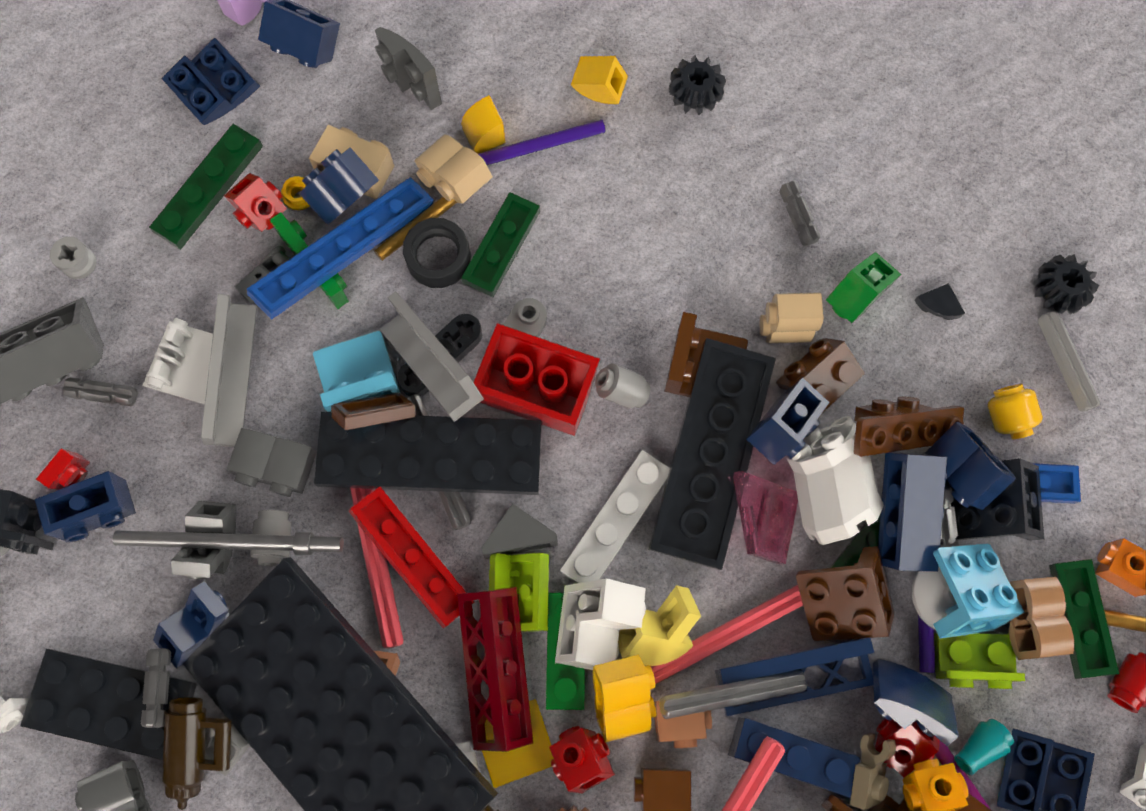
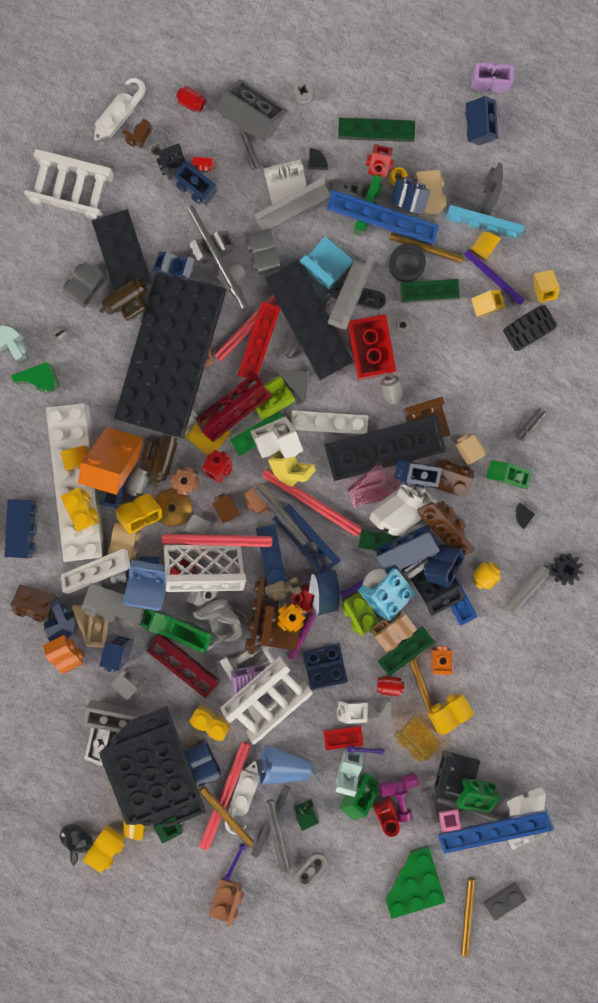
camera: 60 degrees right, 15 degrees up
(156, 687) = (140, 268): flat silver axle -> none
(189, 296) = (317, 160): none -> black tile
(210, 82) = (431, 94): dark blue slope -> none
(372, 411) = (312, 283): reddish brown tile -> none
(446, 110) = (484, 221): none -> medium azure plate
(452, 169) = (453, 244): tan brick -> none
(573, 172) = (488, 302): none -> yellow brick
(623, 697) = (253, 468): yellow brick -> none
(652, 127) = (530, 327): none -> black tyre
(696, 85) = (574, 343): black gear -> none
(848, 599) = (352, 543): reddish brown bracket -> none
(985, 745) = (323, 633): teal cone -> none

